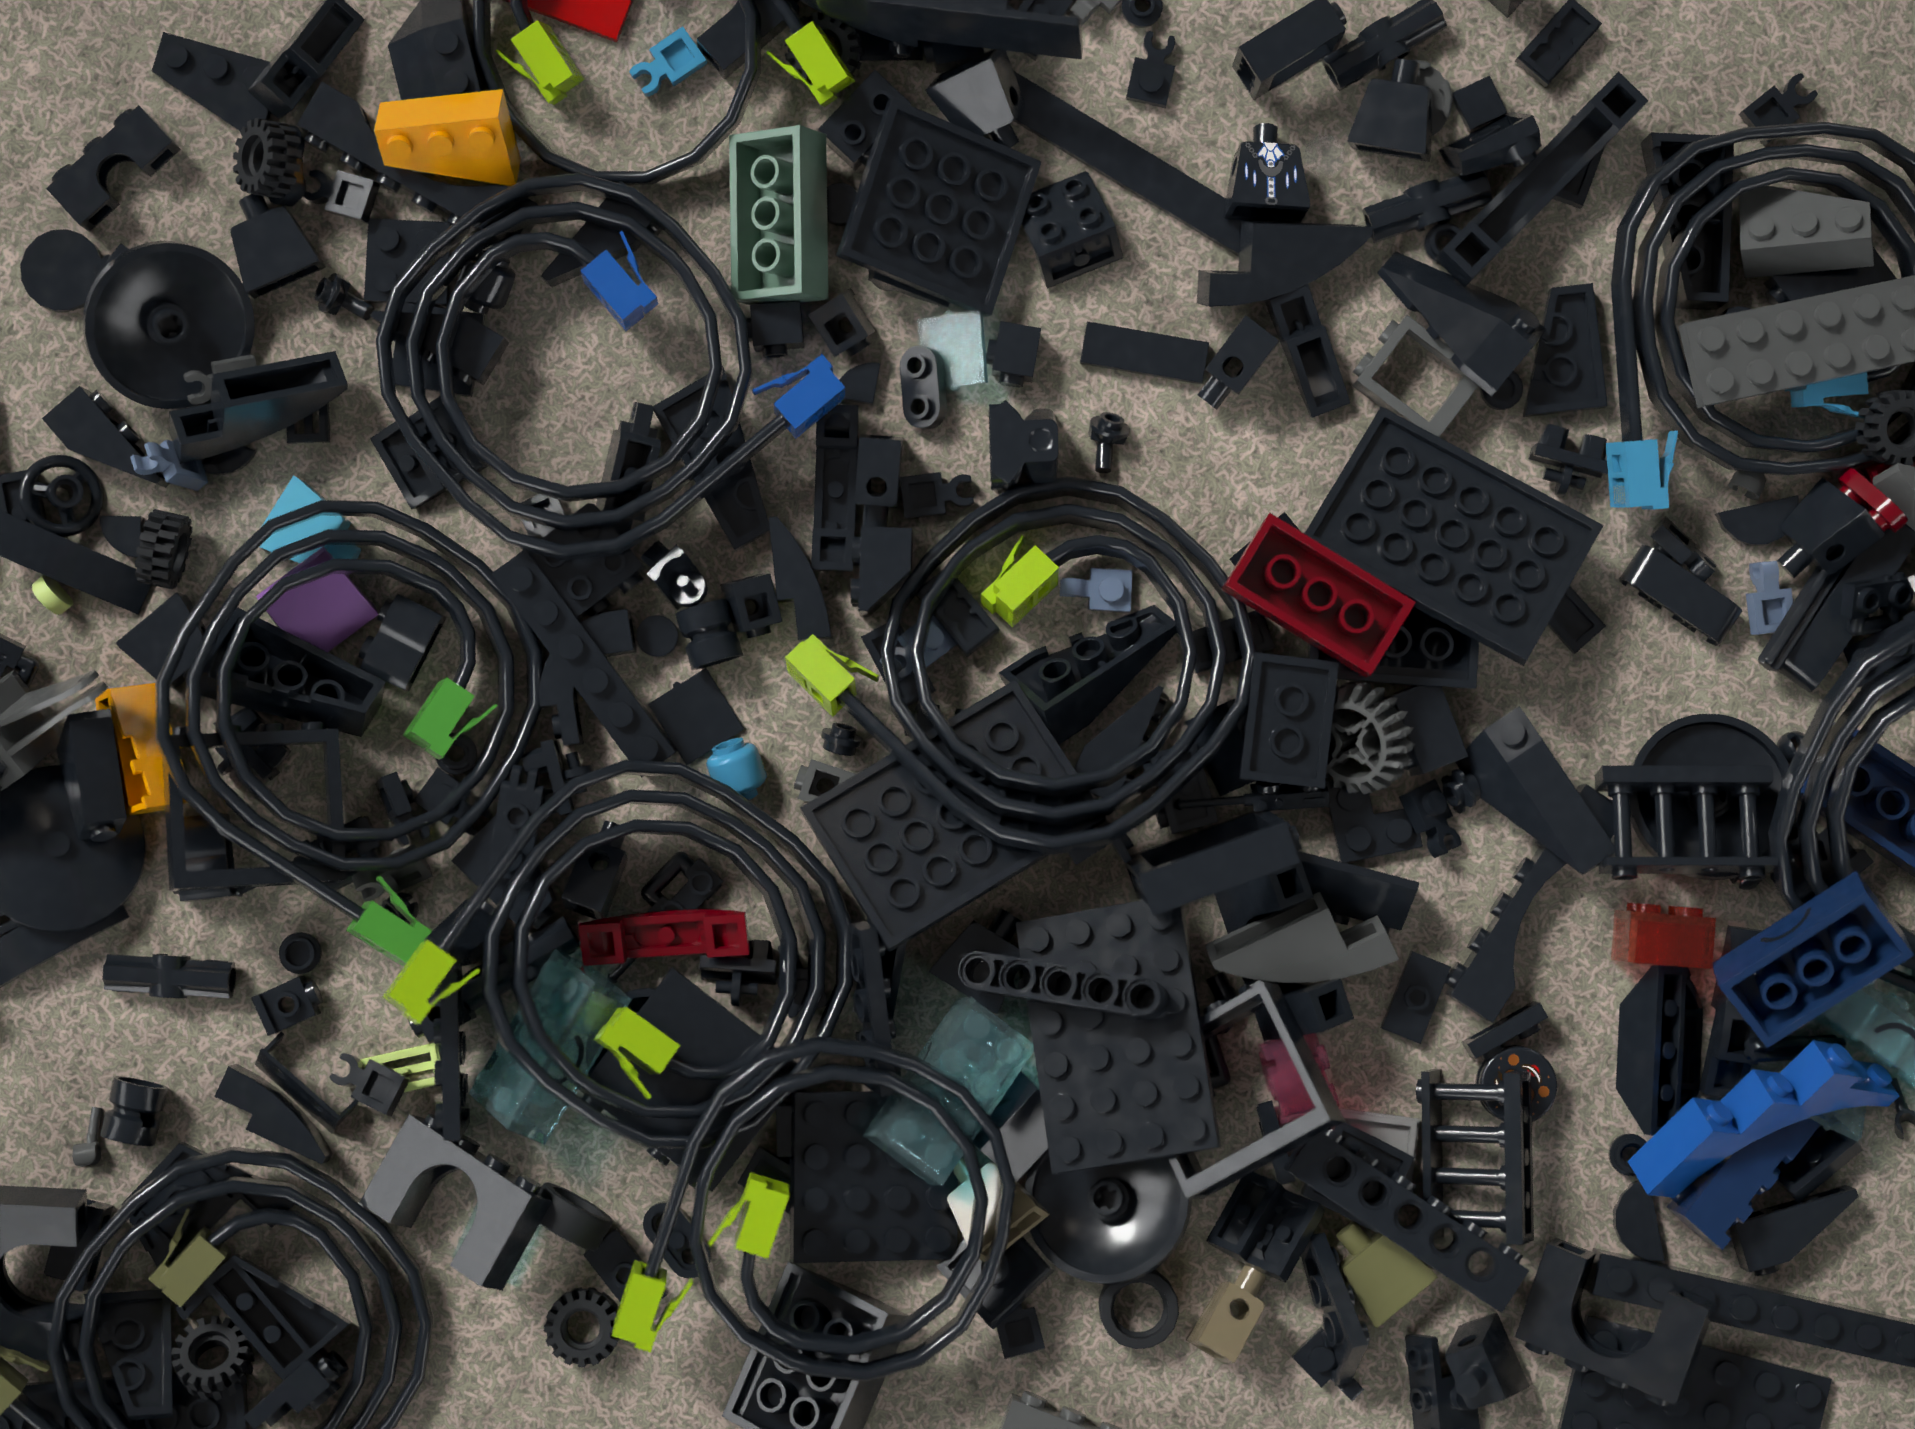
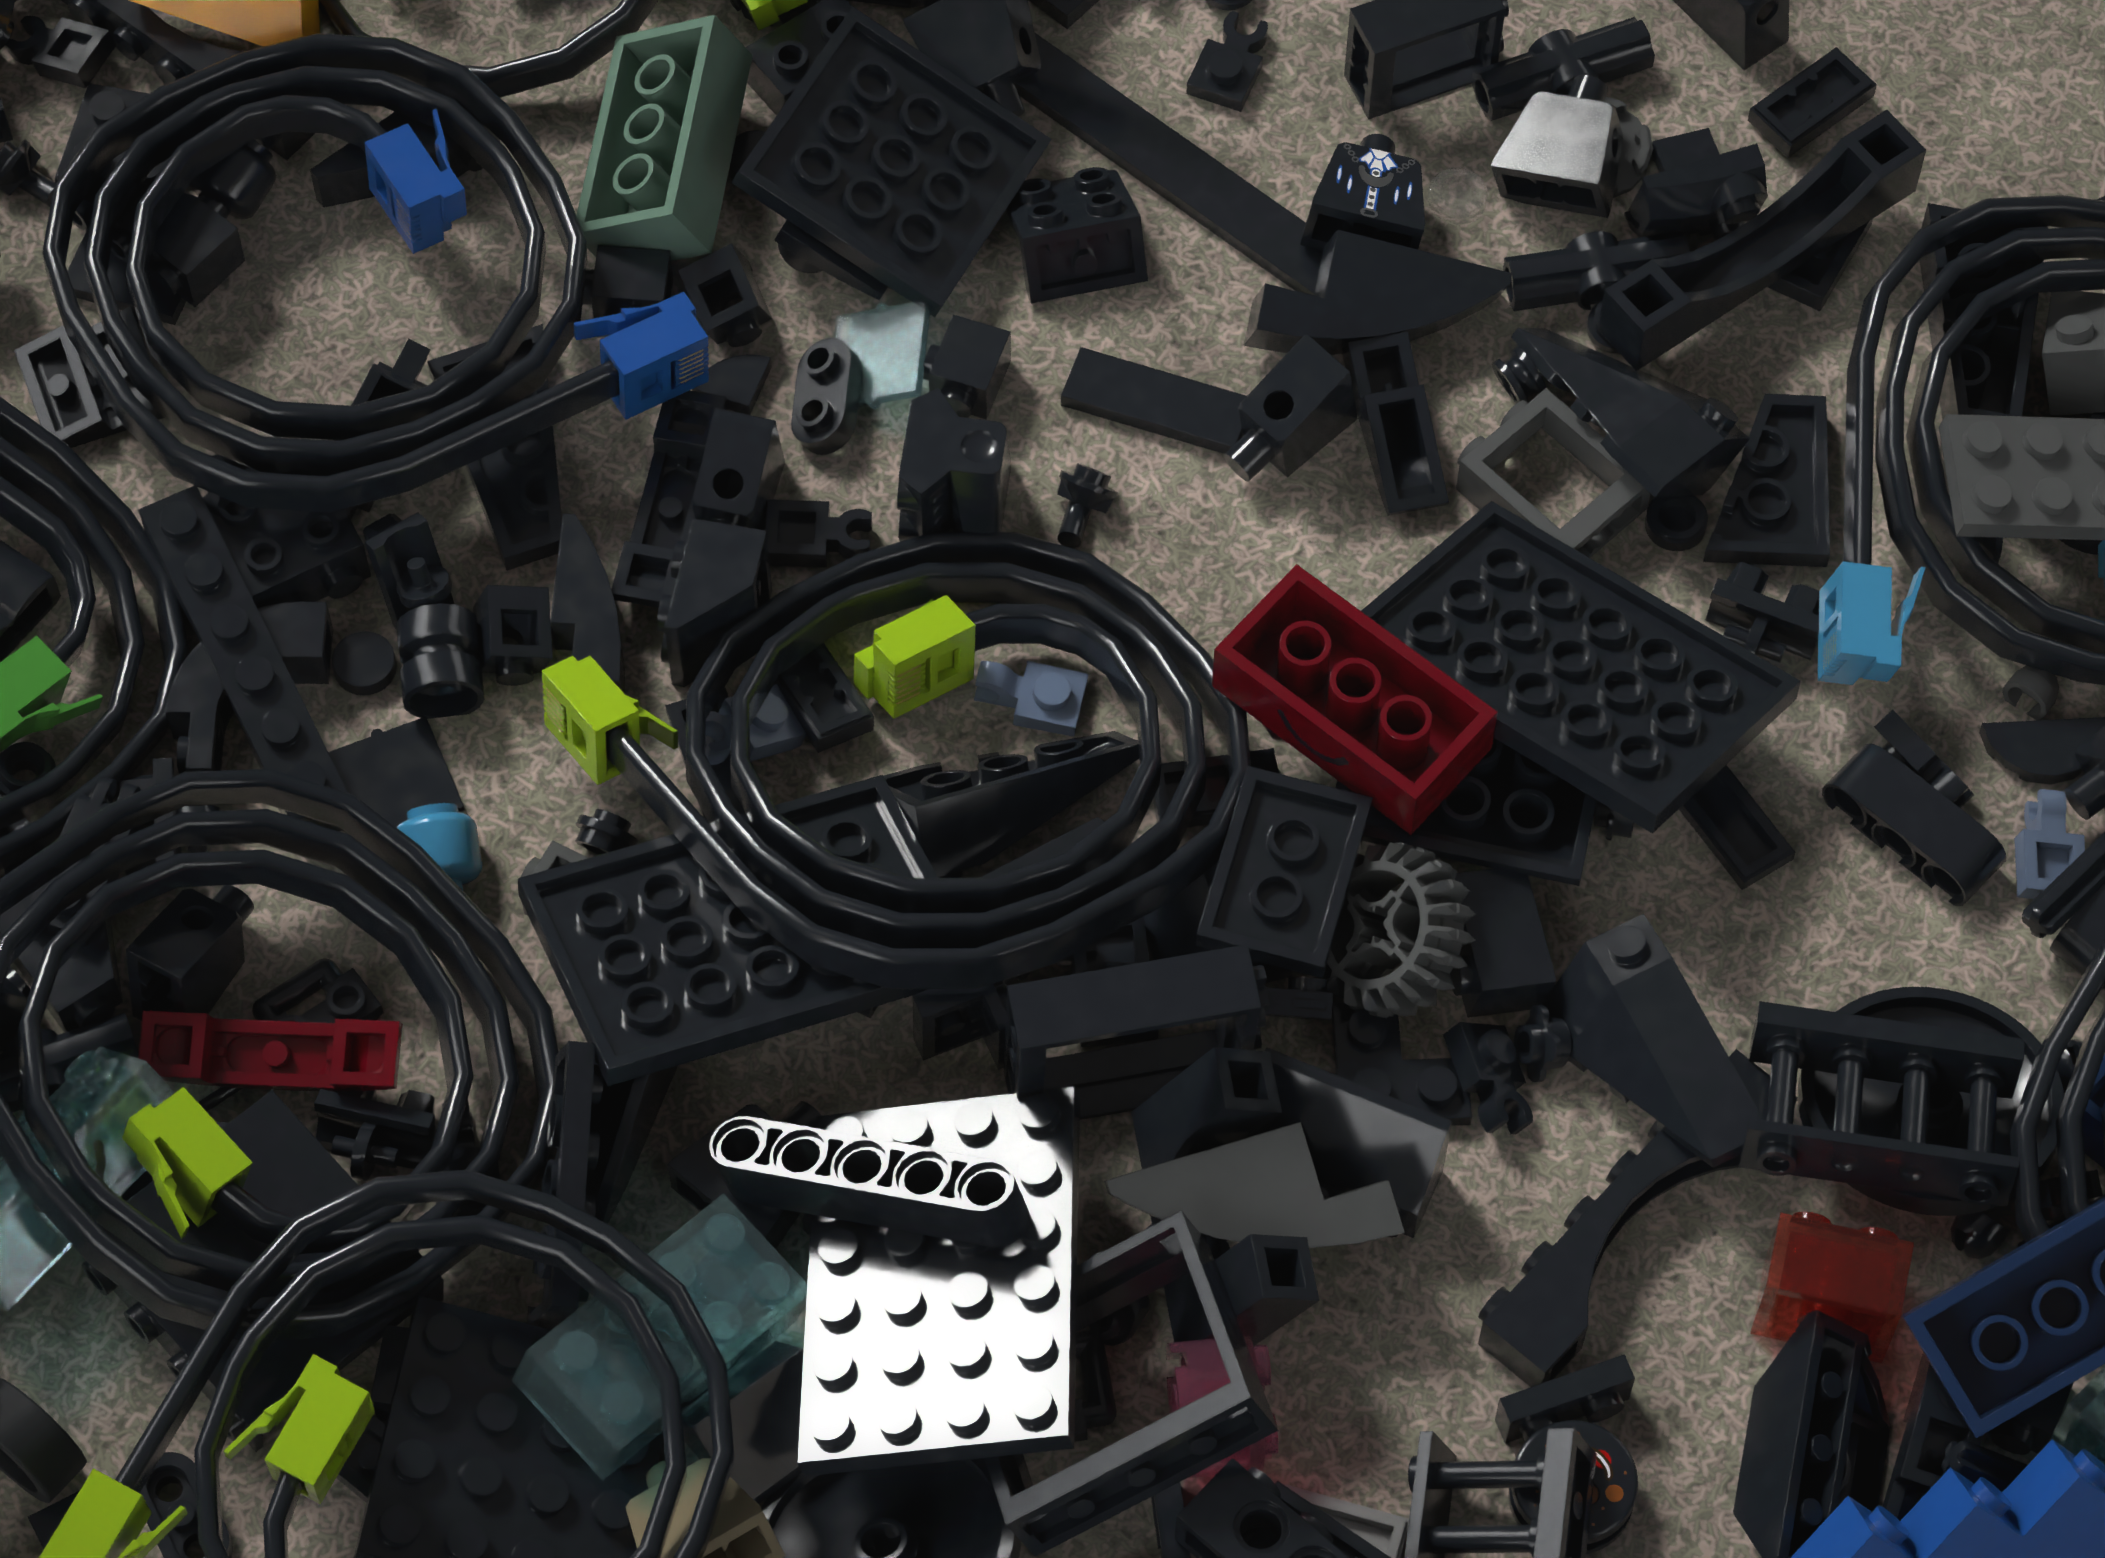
camera: 10 degrees right, 25 degrees down
(1385, 299) = (1519, 375): none -> black bush
(1415, 997) = (1429, 1338): black plate -> none

